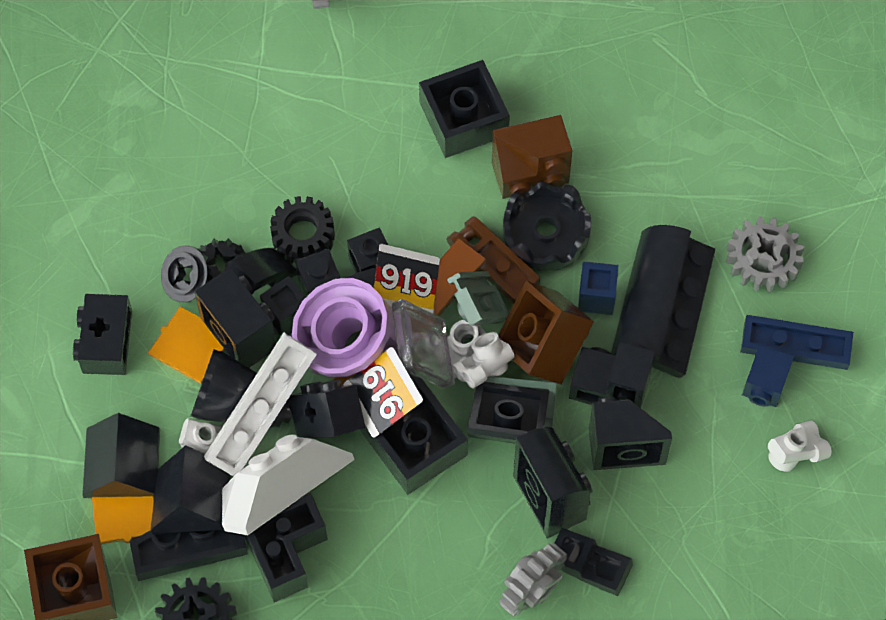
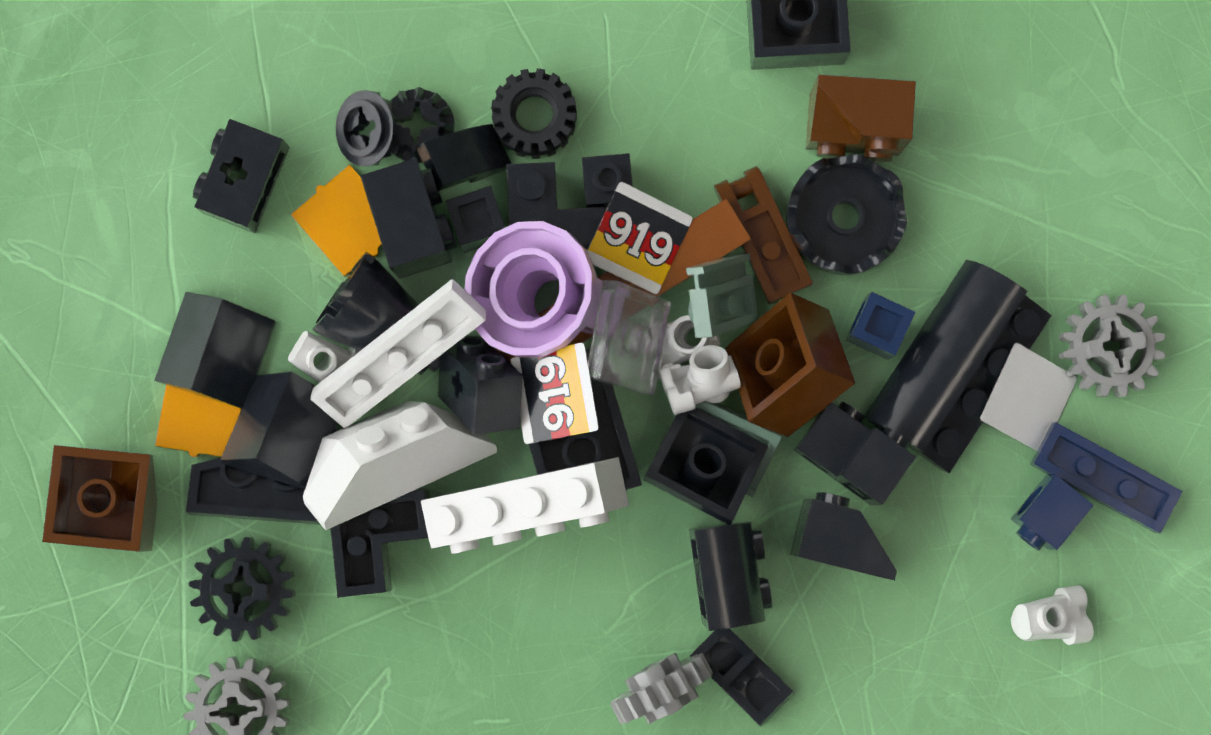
camera: 20 degrees right, 20 degrees up
(387, 473) = (525, 503): none -> white brick
(720, 305) = (1028, 396): none -> white sticker

